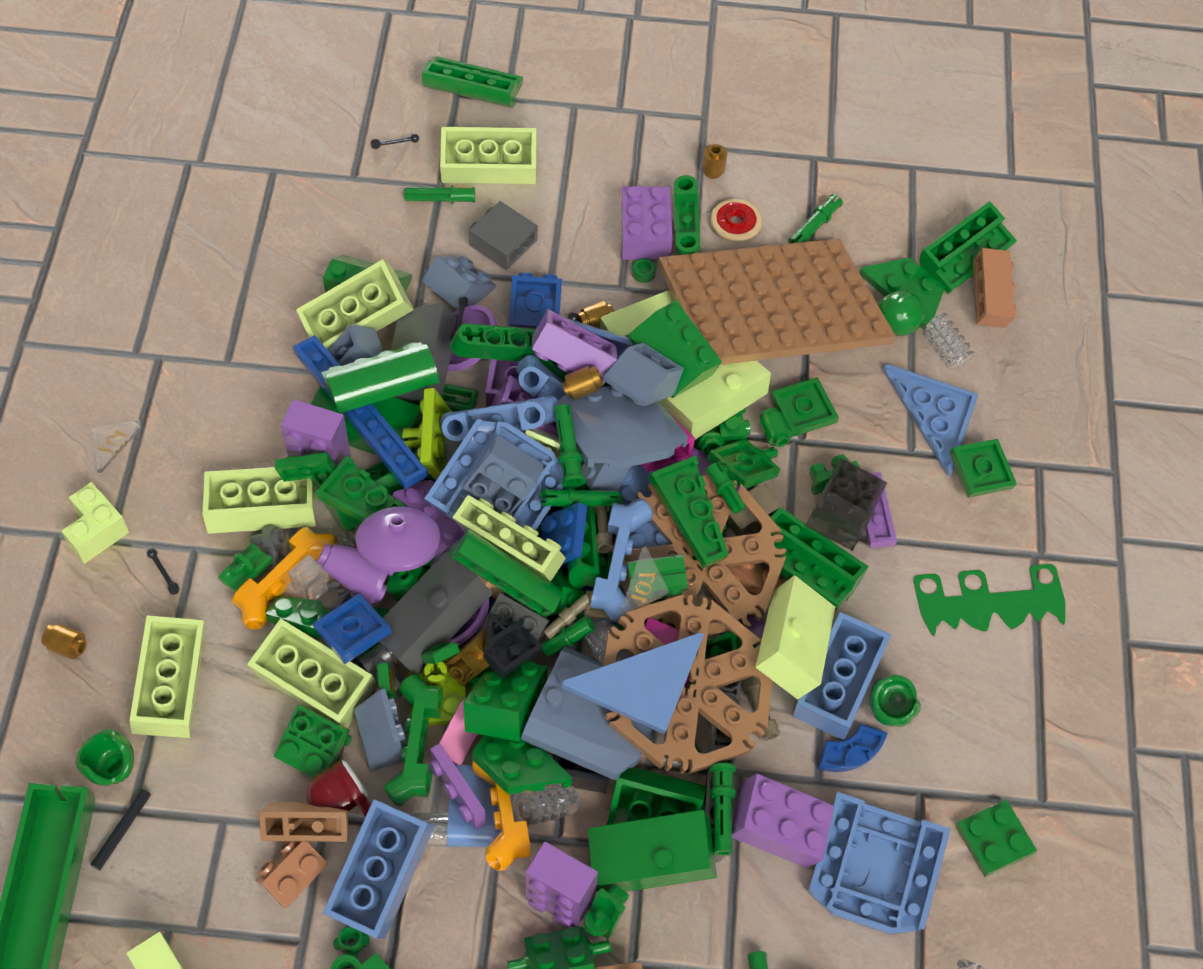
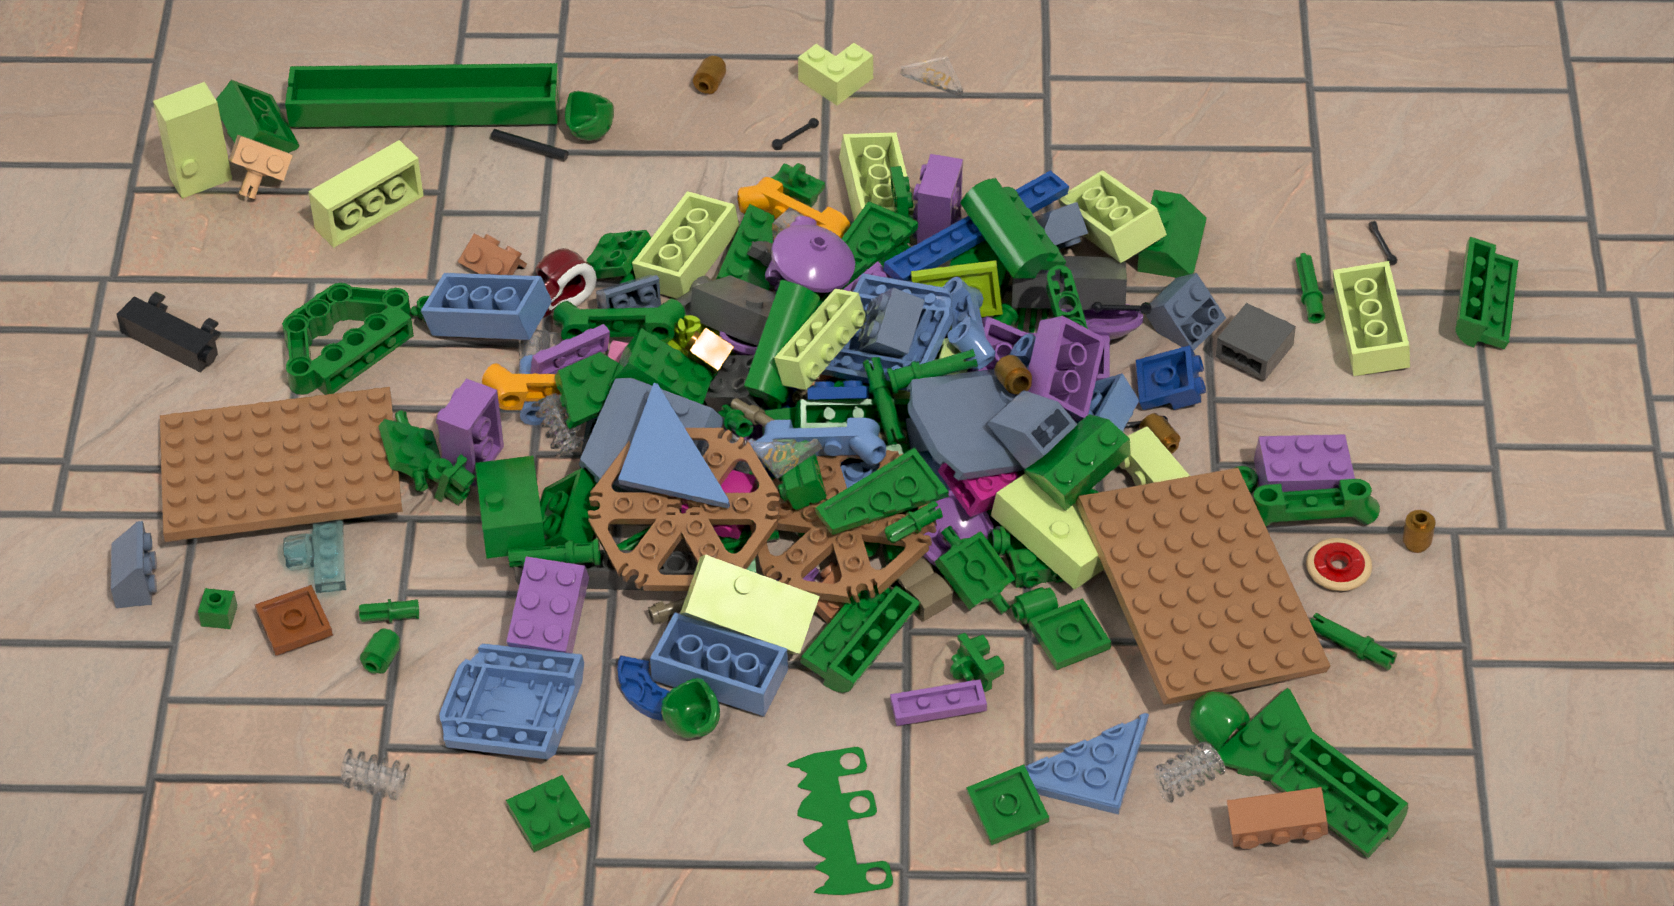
camera: 90 degrees right, 10 degrees down
(167, 677) = (675, 145): yellowish green brick -> none
(271, 539) = (835, 199): dark grey piece -> none
(303, 823) = (530, 245): medium nougat slope -> none
(352, 628) = (726, 254): blue plate -> none
(386, 679) = (676, 287): green tile -> none
(440, 652) = (704, 319): green tile -> none
(508, 645) = (710, 362): black slope -> none
(846, 504) = (931, 658): clear smoke slope -> none

